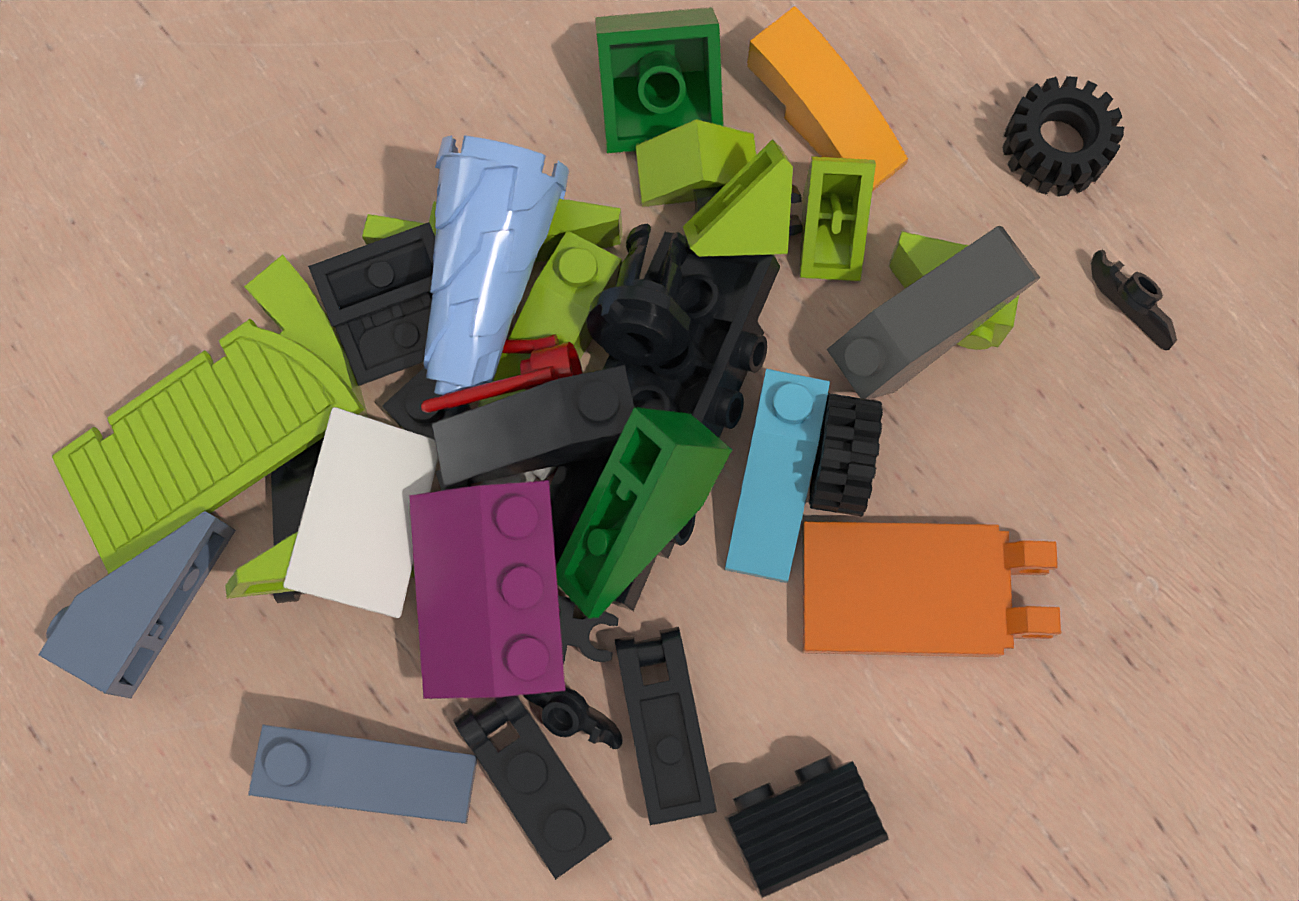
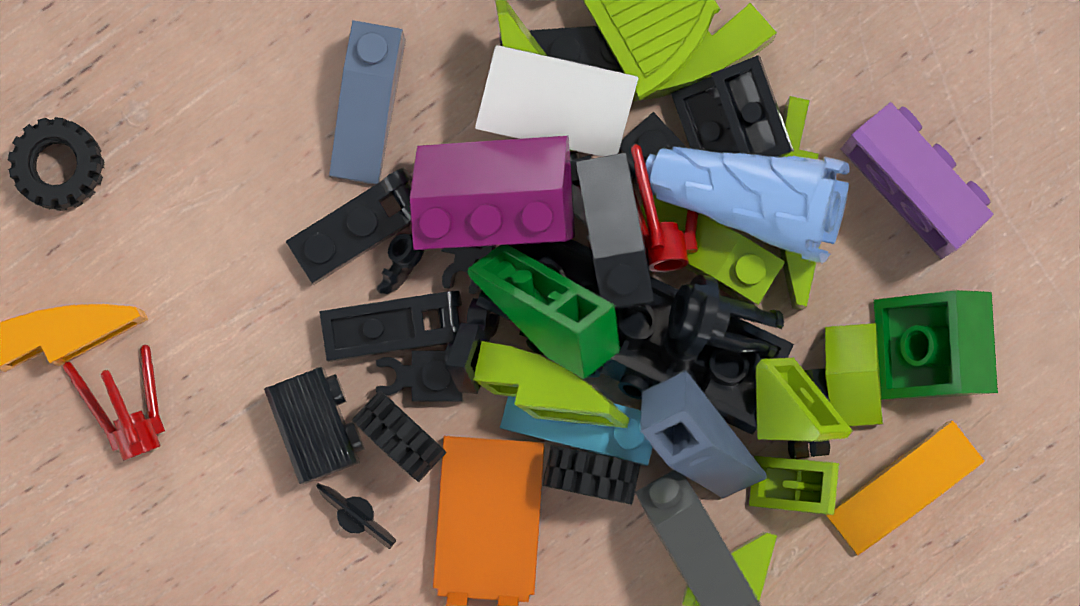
camera: 95 degrees right, 10 degrees up
(473, 93) = (918, 179): none -> medium lavender slope
(699, 618) = (463, 352): none -> black plate
(727, 671) = (425, 376): none -> black plate
(738, 514) = (544, 387): none -> lime slope
(786, 324) = (696, 437): none -> sand blue slope
(814, 705) = (399, 436): none -> black tyre
(916, 762) = (356, 515): none -> black piece

